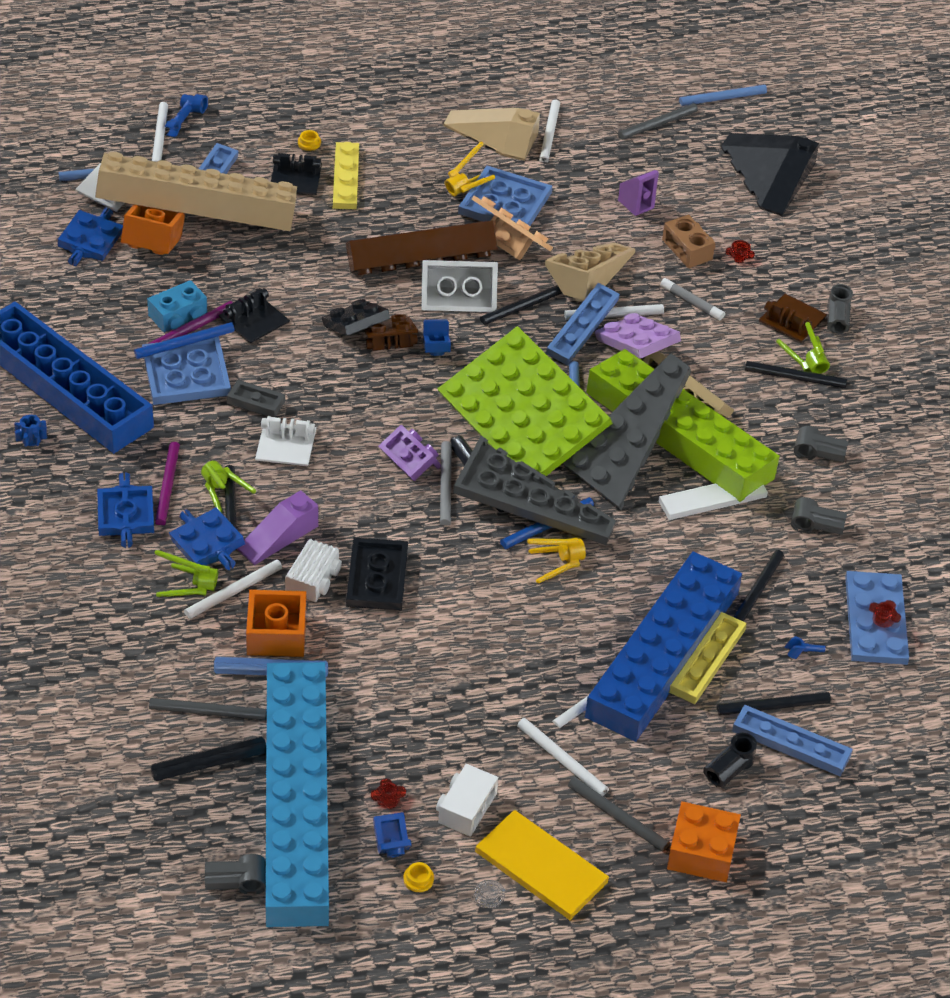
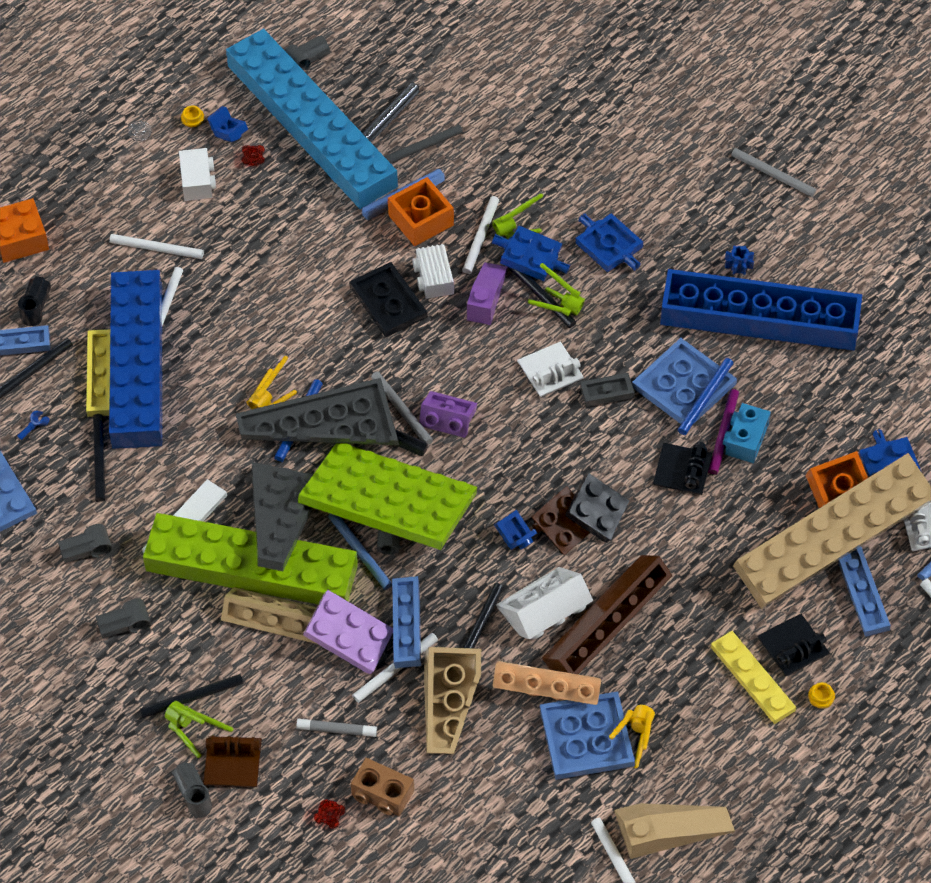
camera: 150 degrees right, 10 degrees up
(167, 483) = (604, 286): magenta bar -> none
(542, 864) = (120, 169): yellow tile -> none
(618, 814) = (91, 229): dark grey bar -> none
(639, 192) = (469, 812): medium lavender slope -> none

